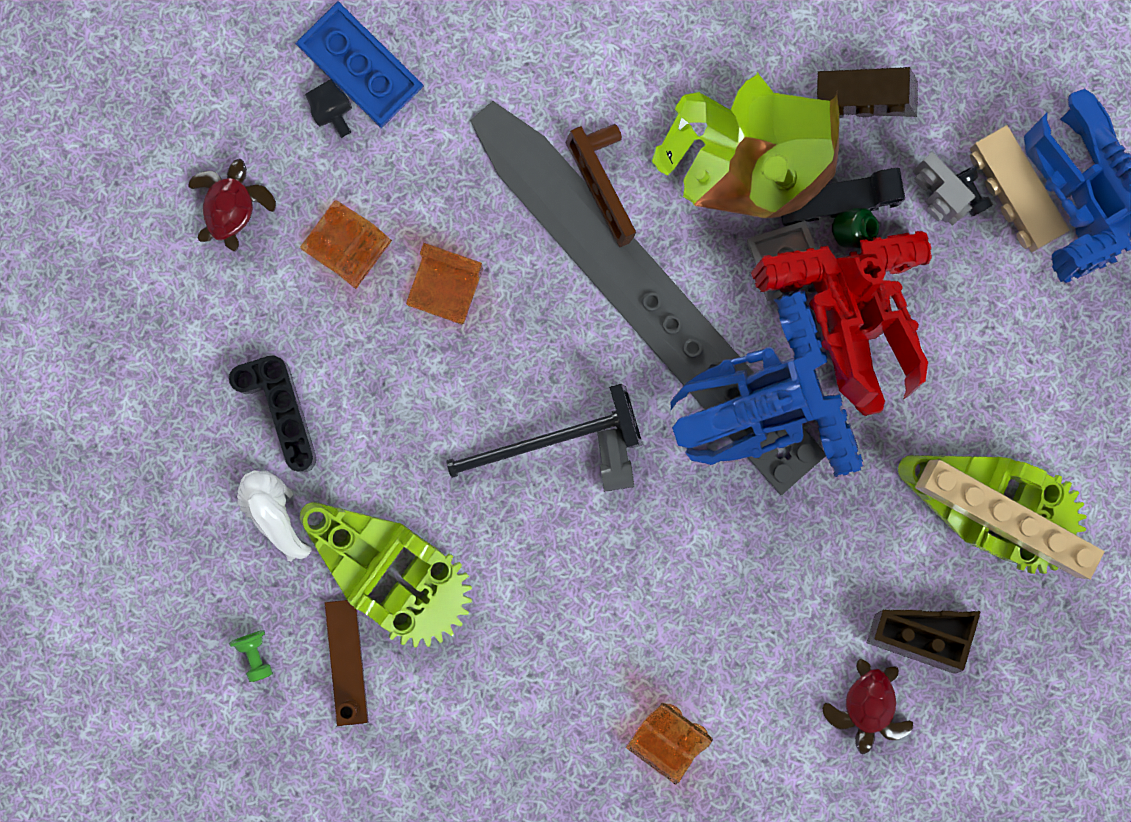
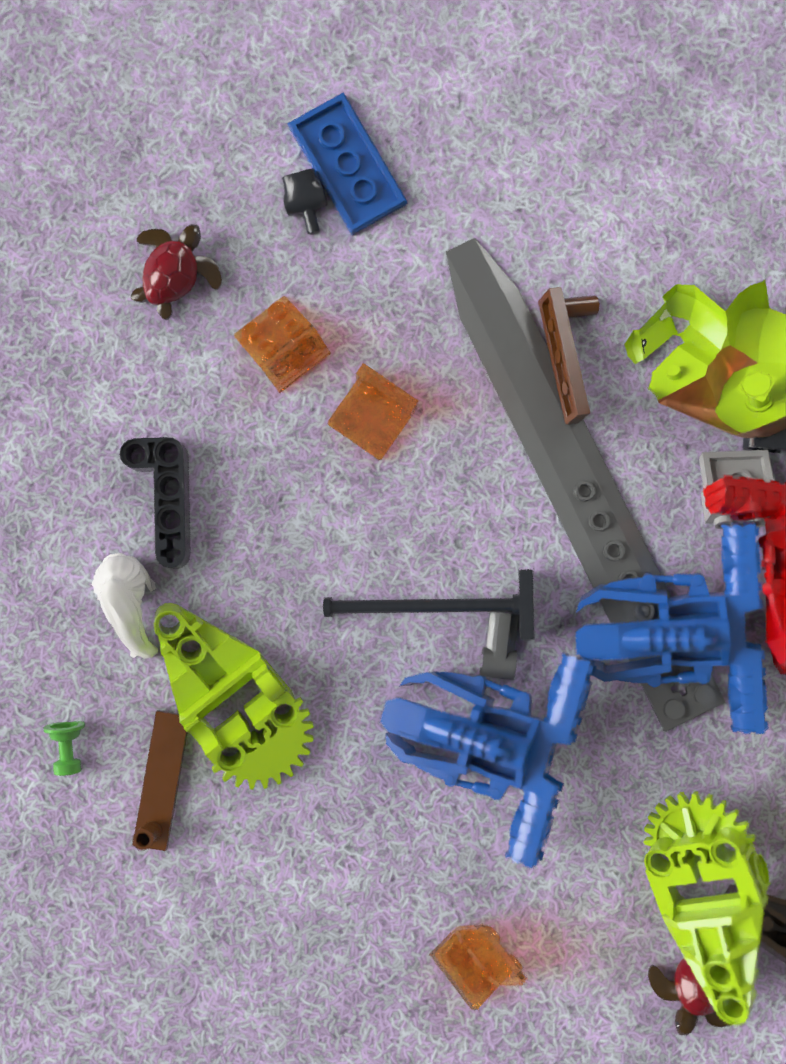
camera: 15 degrees right, 0 degrees up
(632, 543) = (497, 743): none -> blue piece
(865, 649) = (715, 927): none -> lime connector

